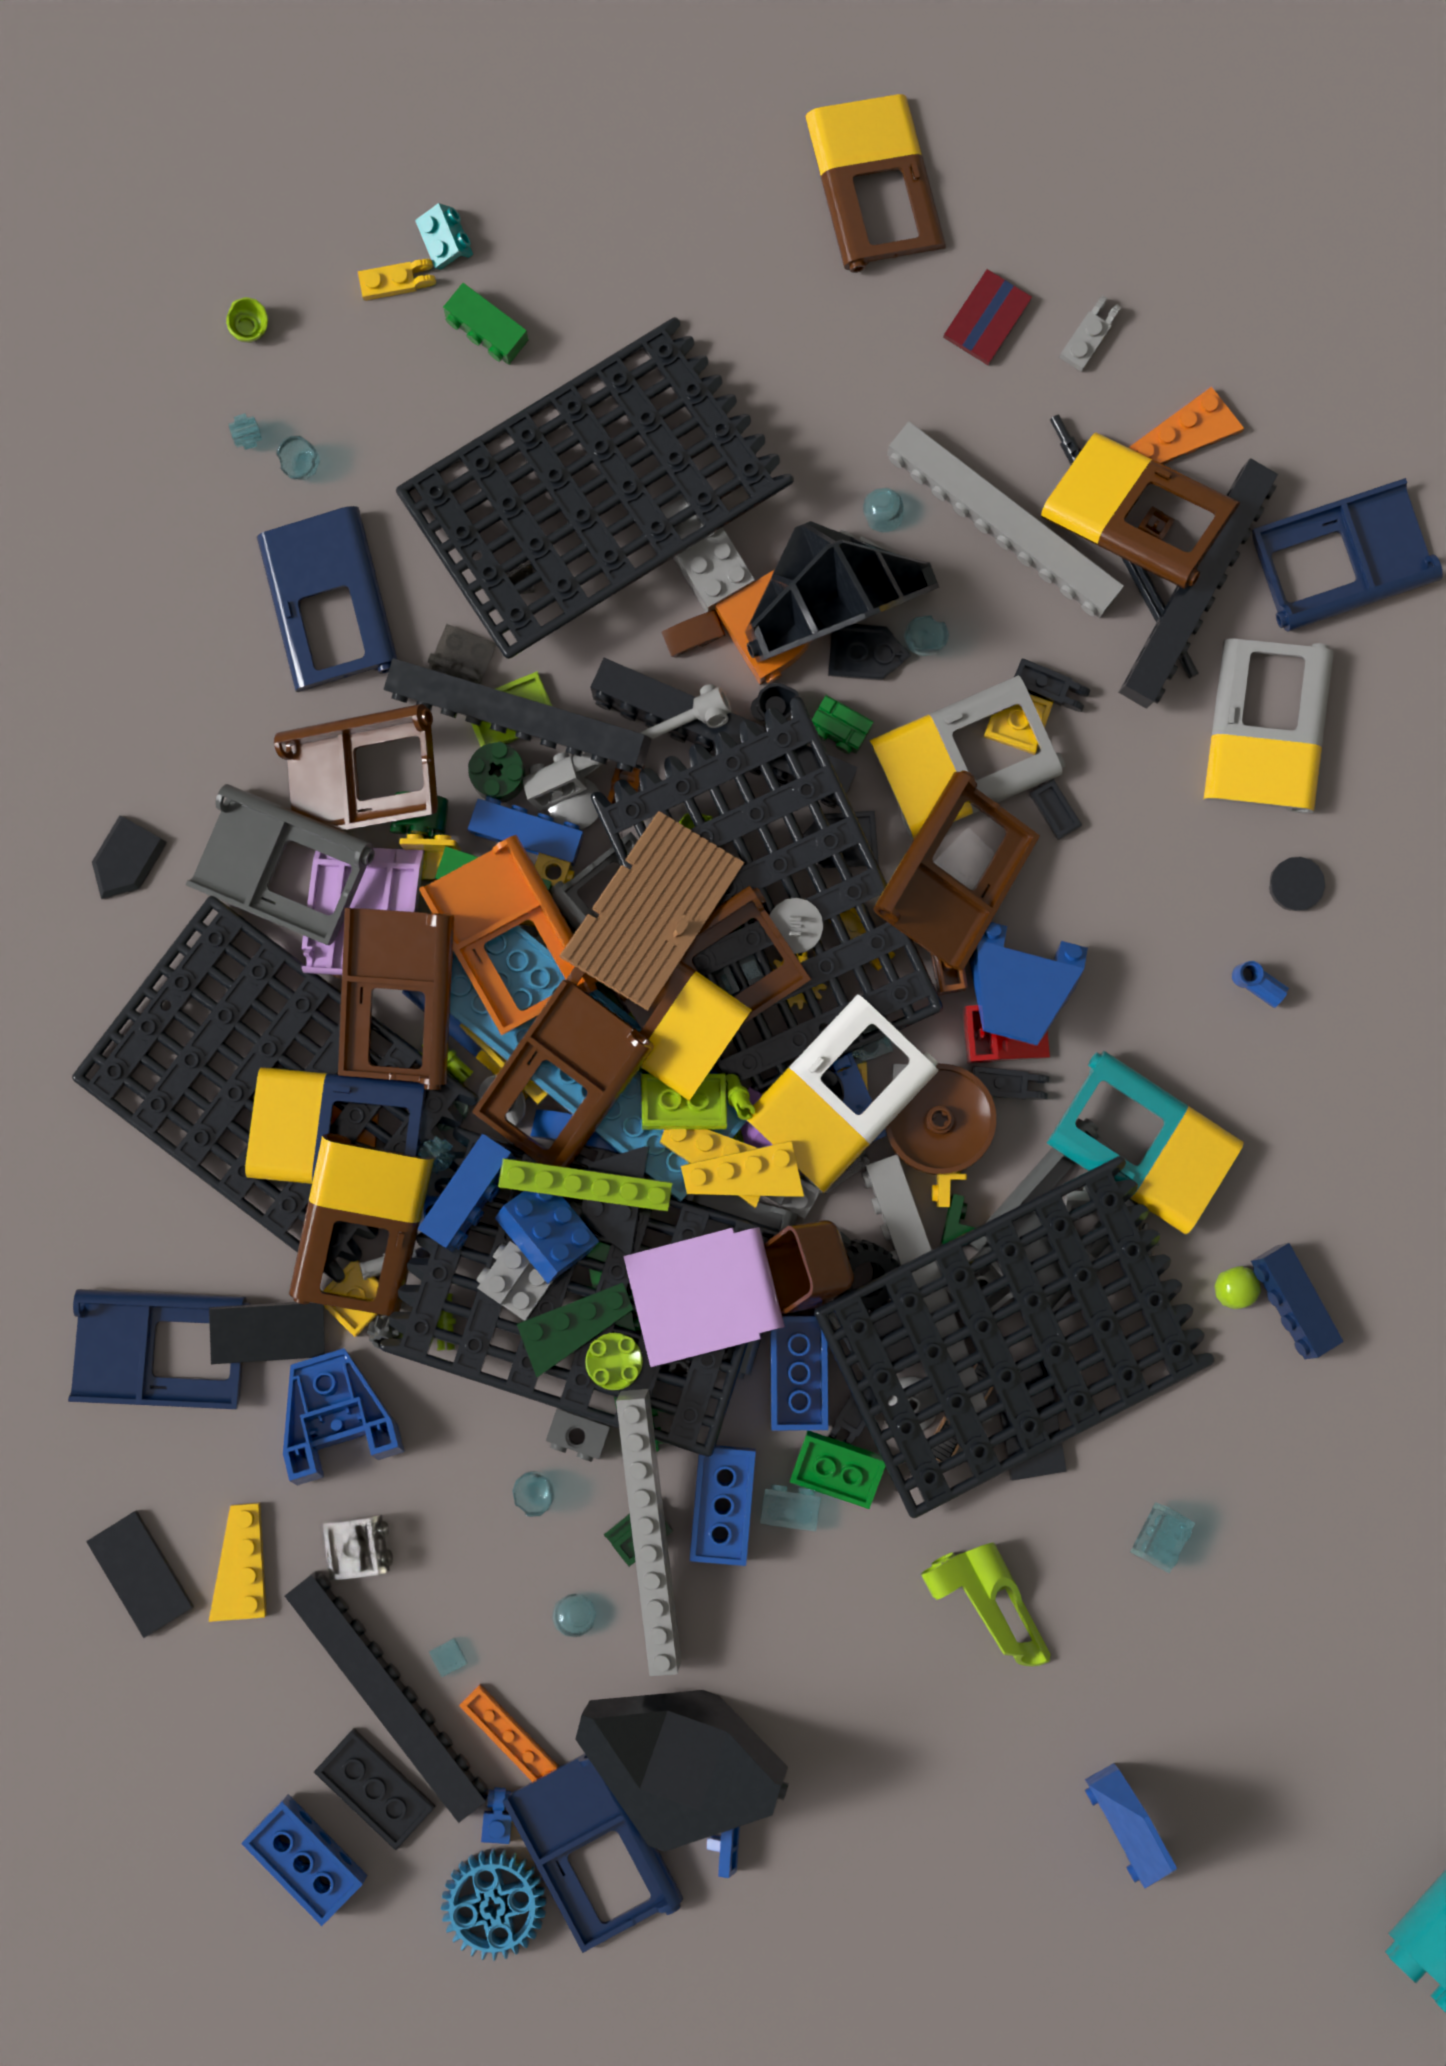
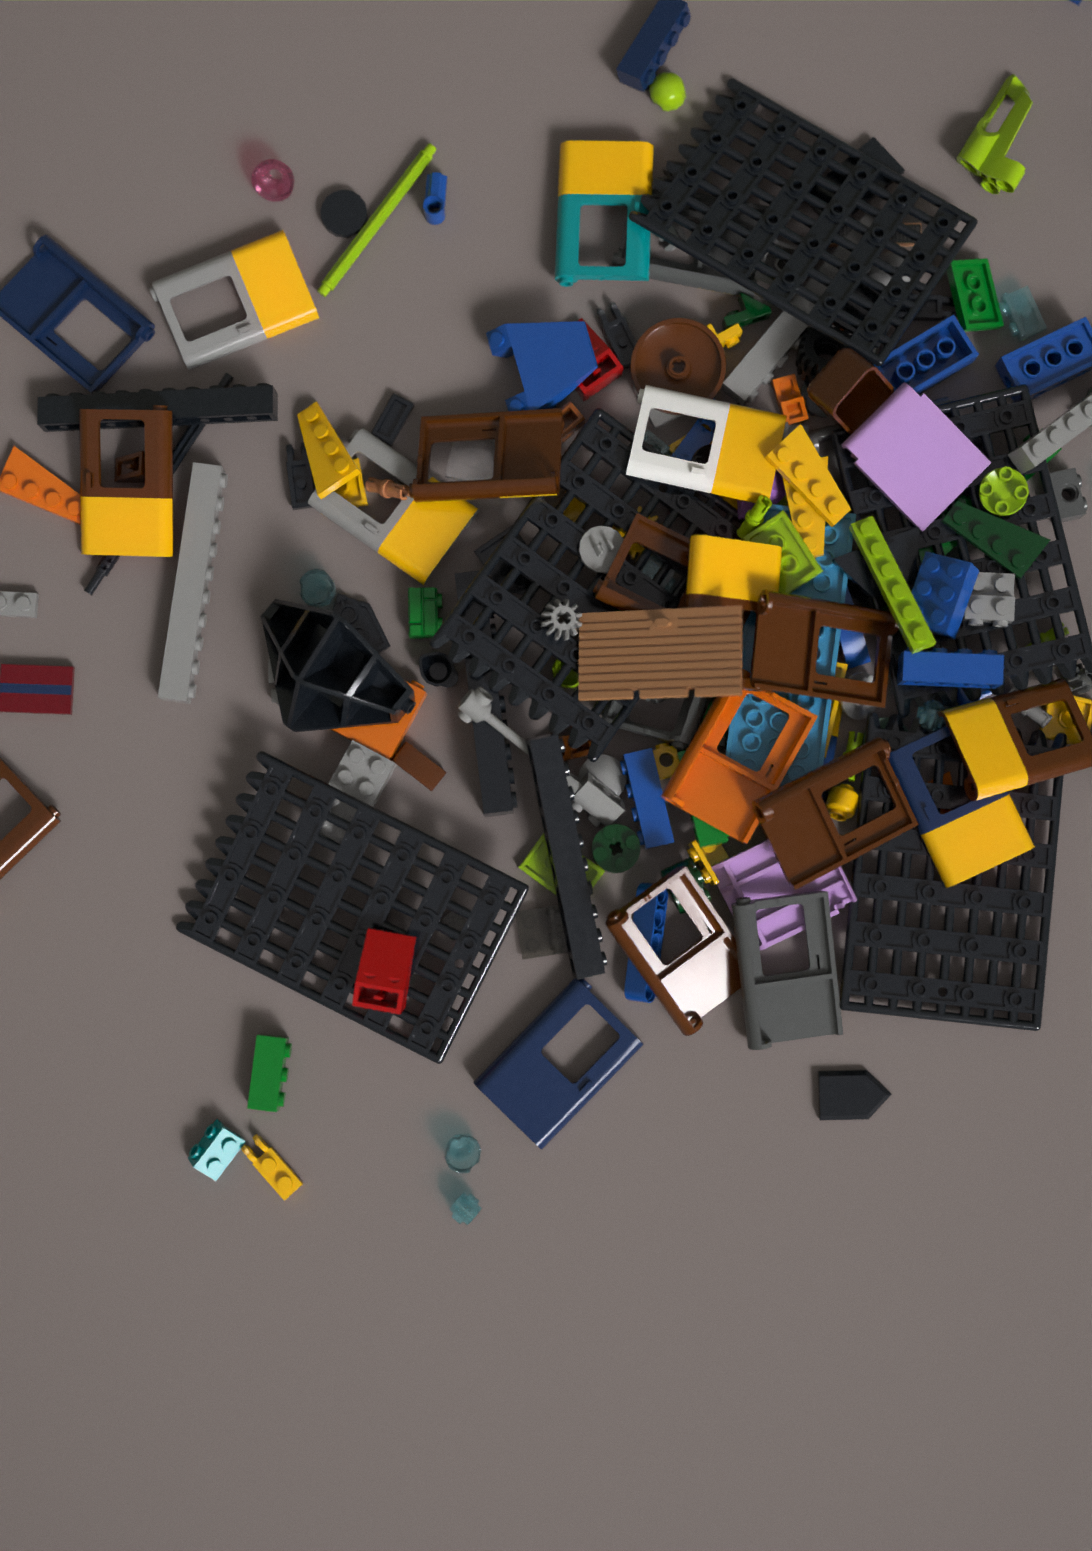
camera: 120 degrees left, 0 degrees up
(247, 320) = (375, 1262): lime hair -> none
(398, 757) = (651, 923): none -> blue beam
(407, 1019) = (842, 802): none -> yellow head
(509, 476) = (384, 971): none -> red slope
(738, 833) = (568, 626): none -> light grey gear
(846, 1216) = (789, 399): none -> orange slope
(883, 509) = (236, 680): clear light blue hair -> none
(987, 759) = (387, 488): none -> nougat pin
(1053, 719) = (326, 453): none -> yellow wing
(1162, 1537) = (883, 41): clear light blue brick -> none
(1271, 913) = (376, 220): none -> lime piece
(1367, 826) = (271, 188): none -> clear pink piece

